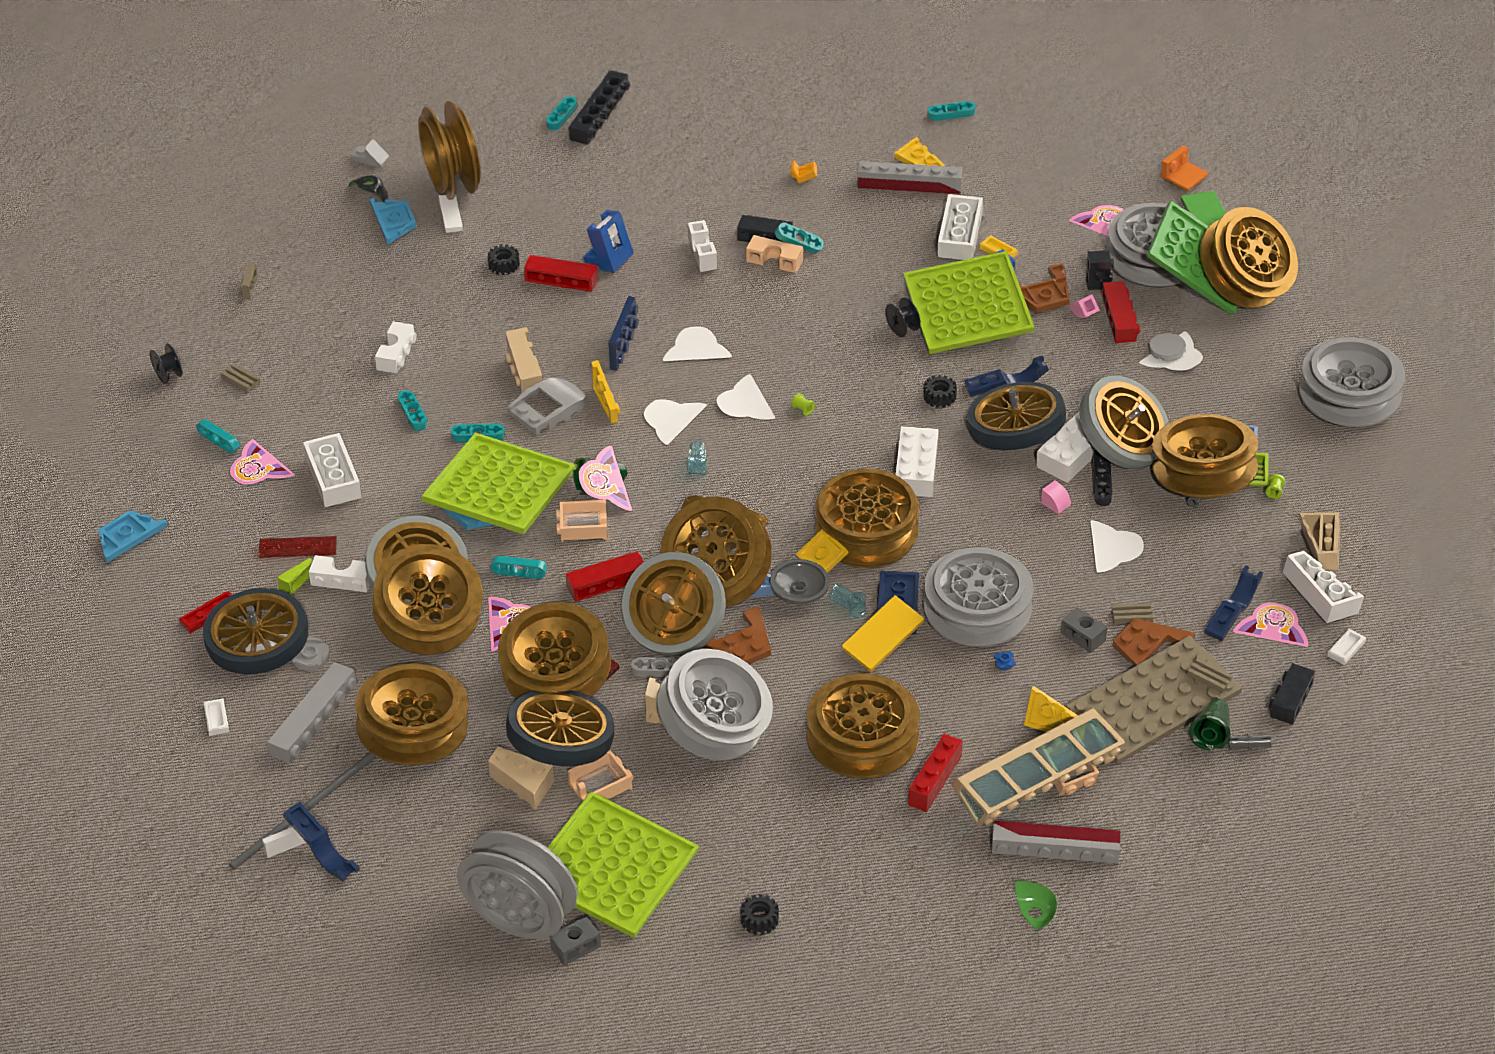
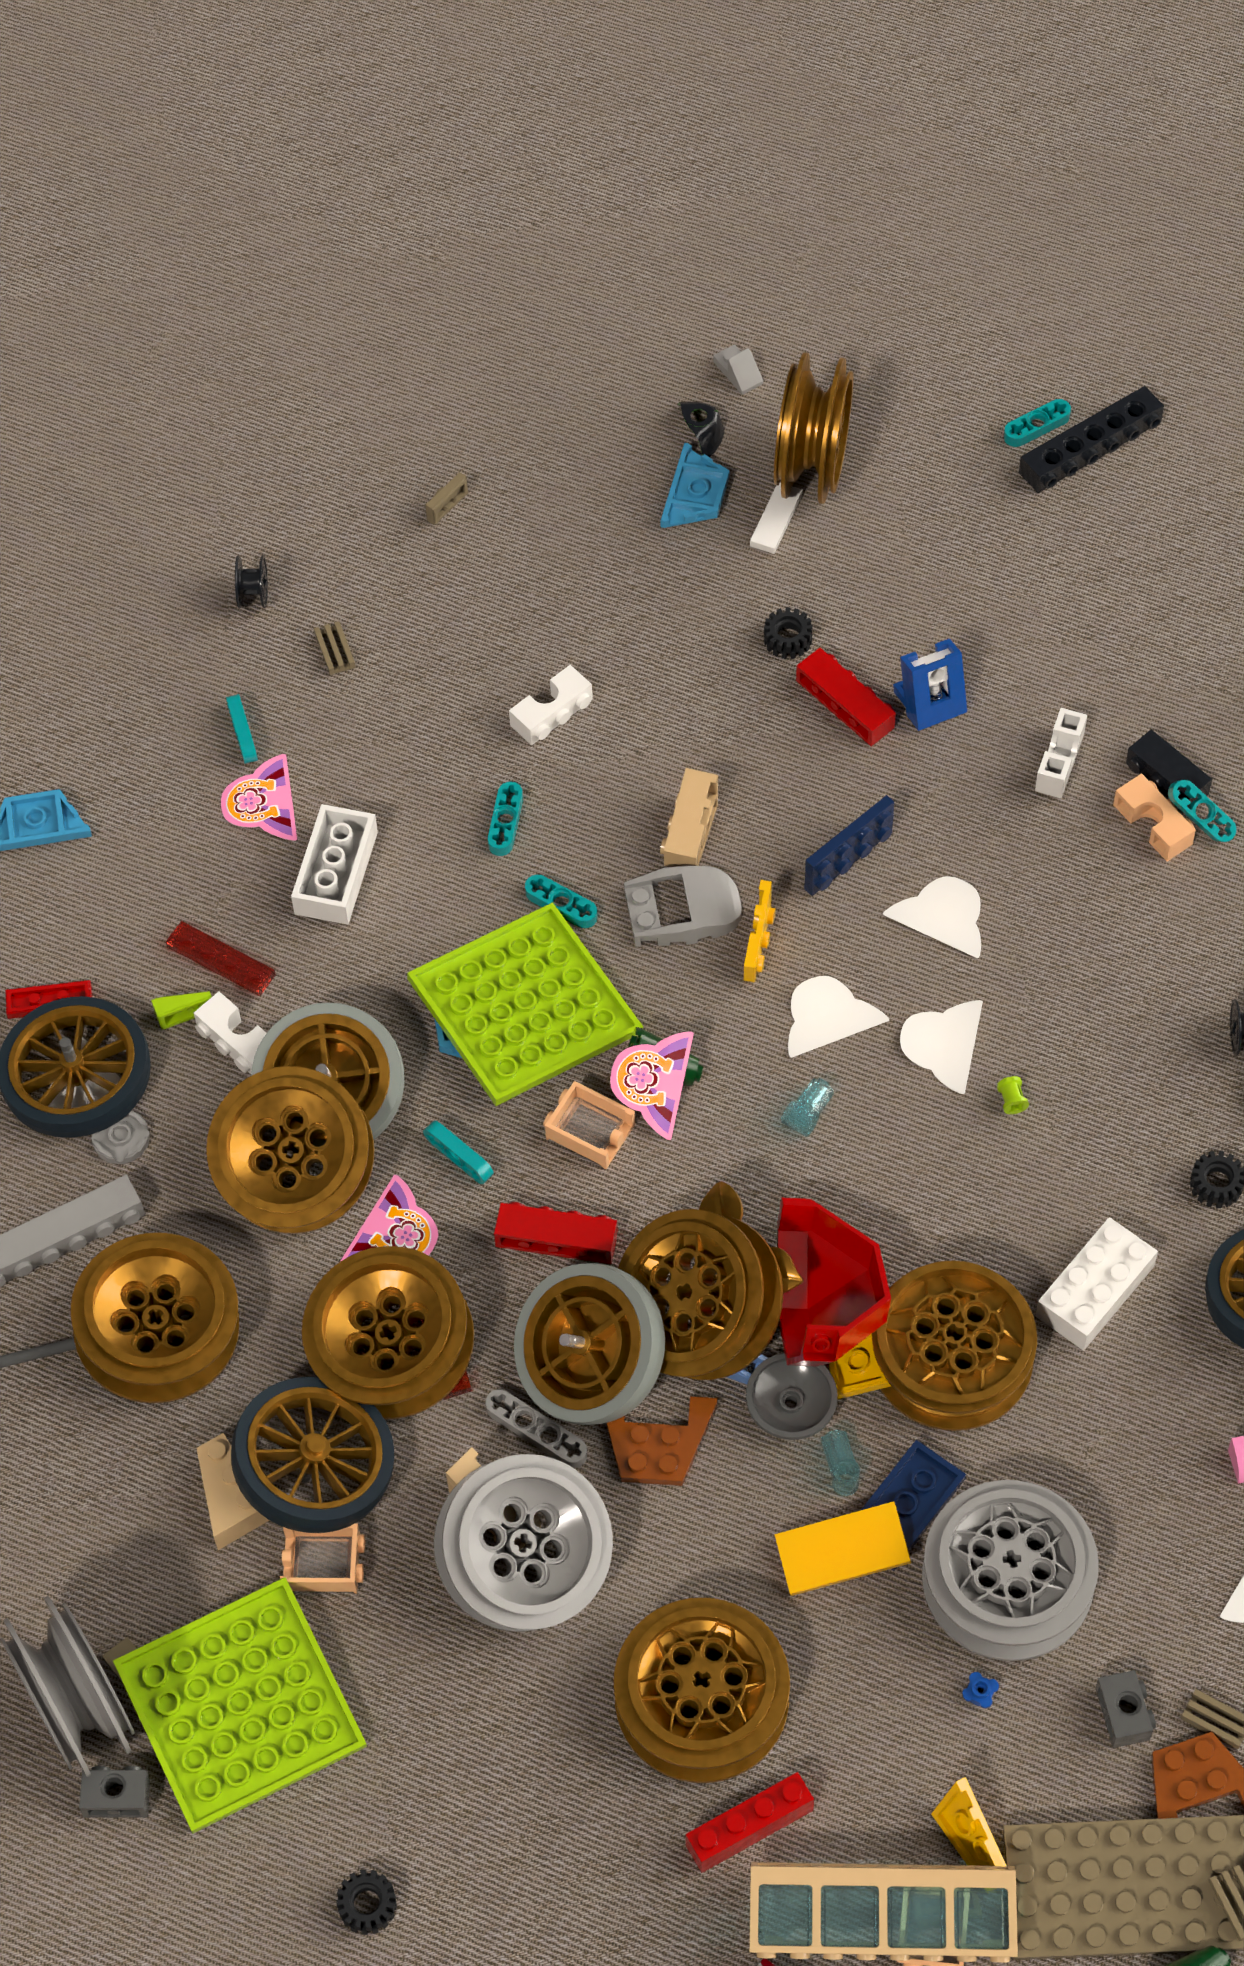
camera: 35 degrees right, 15 degrees up
(794, 517) = (842, 1285): none -> red panel

